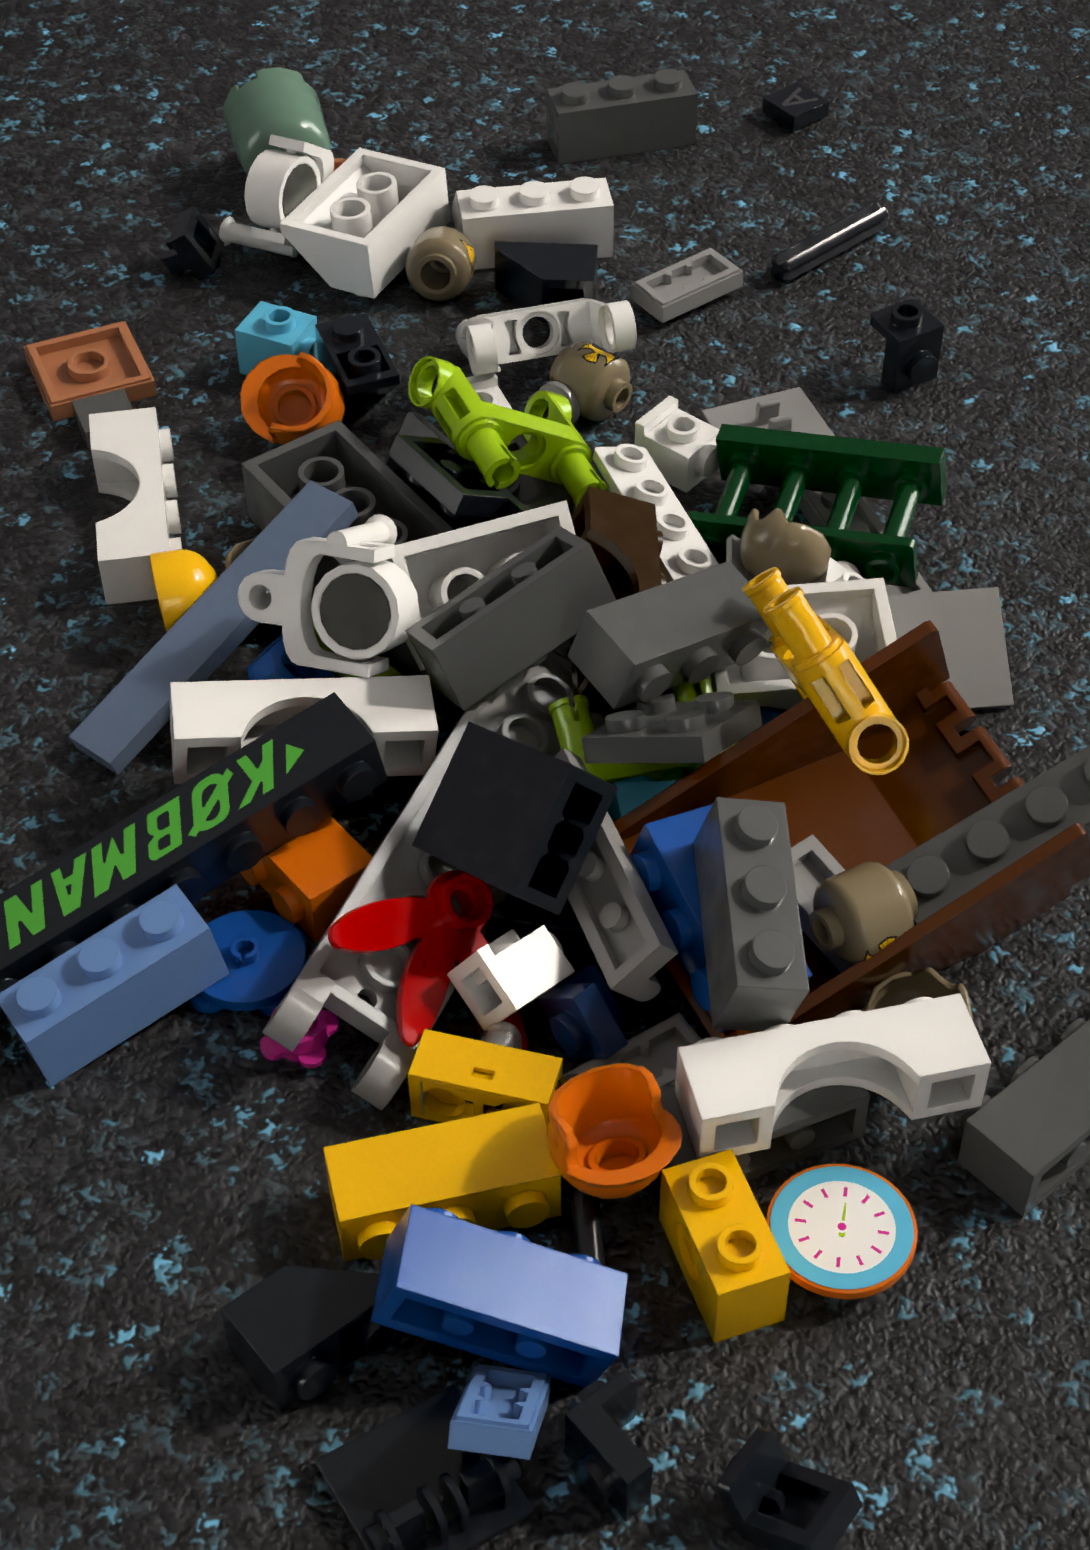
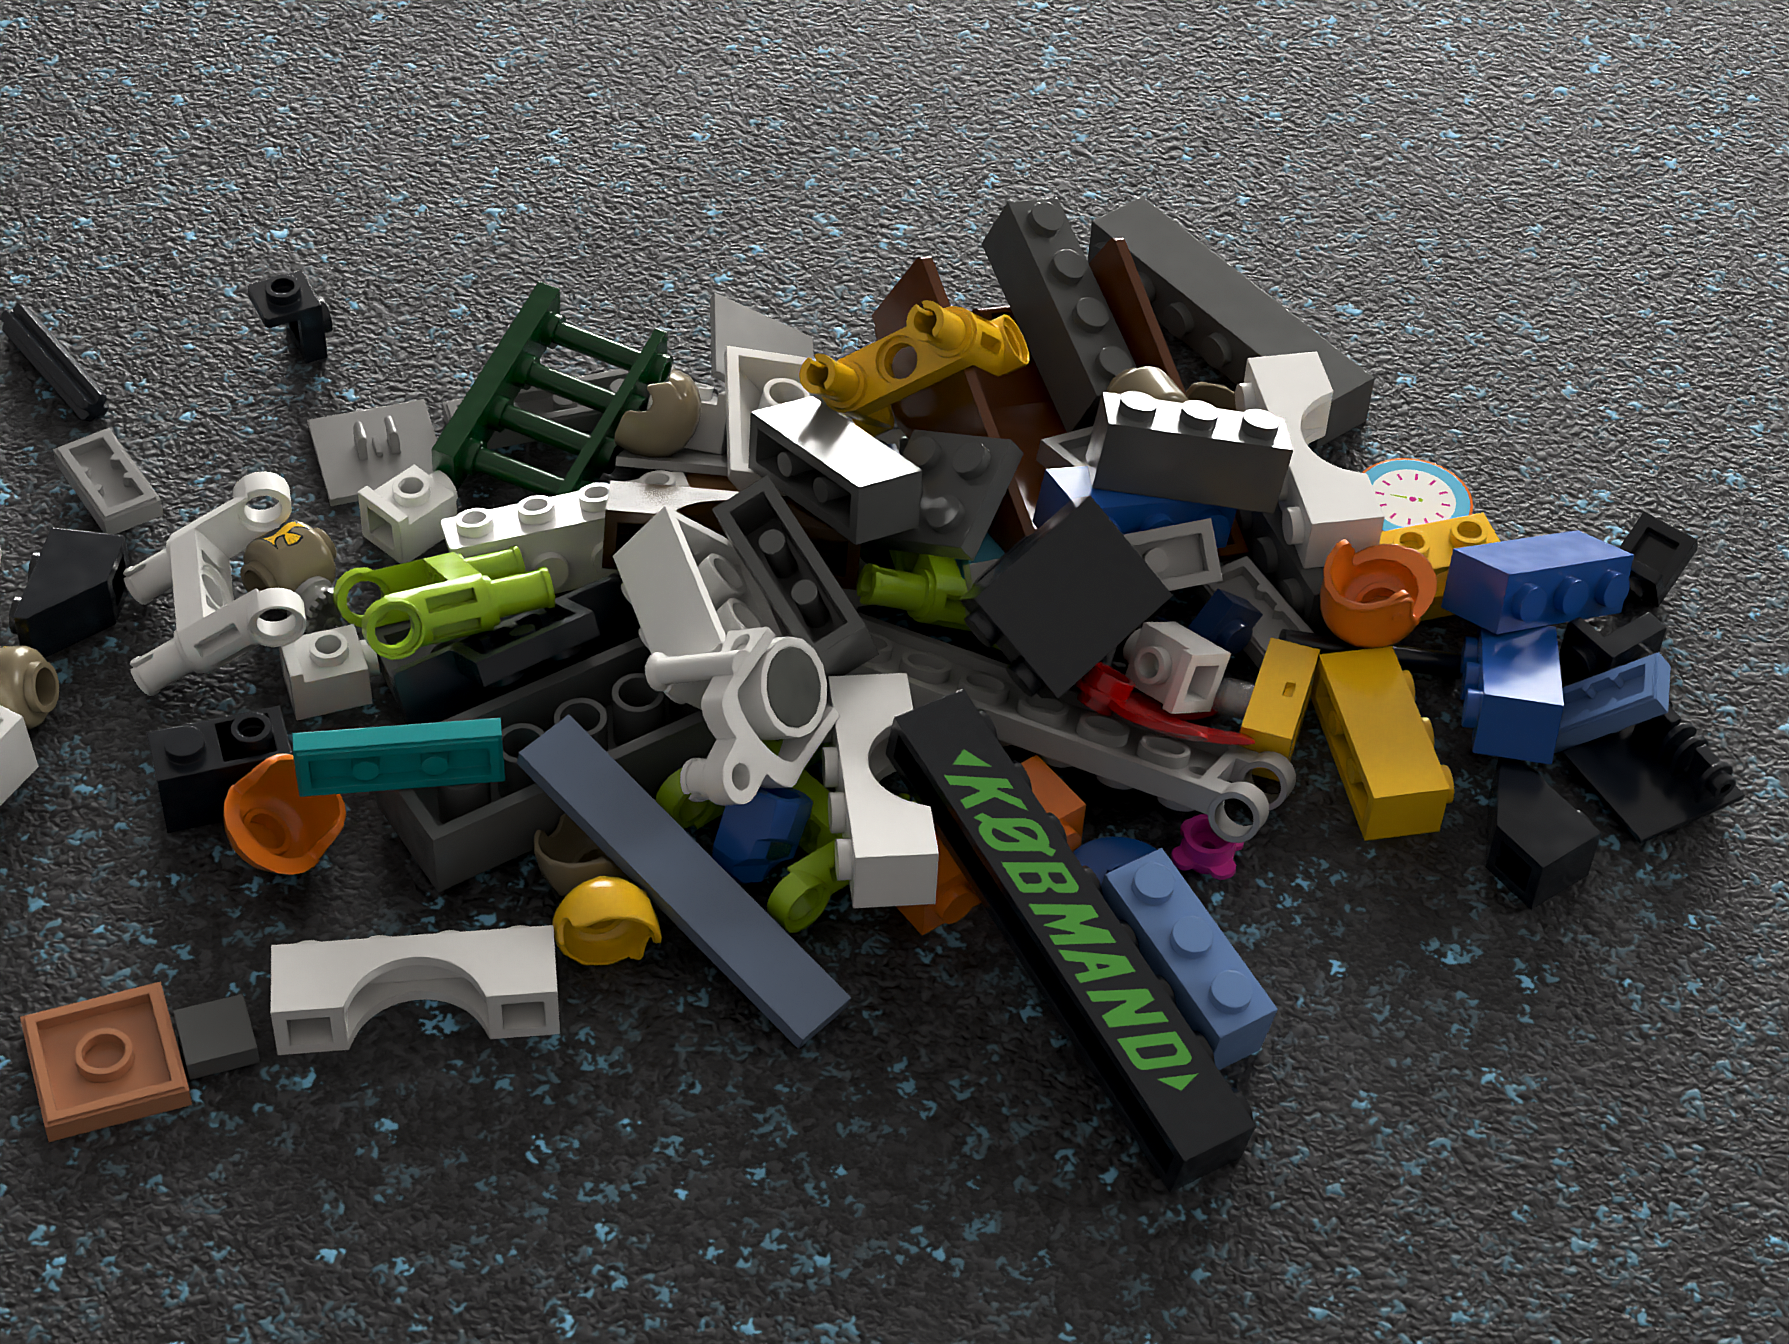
camera: 90 degrees left, 0 degrees up
(272, 332) = (130, 849): medium azure brick -> none
(304, 414) = (398, 757): none -> teal tile
(681, 1331) = (1537, 581): none -> blue brick

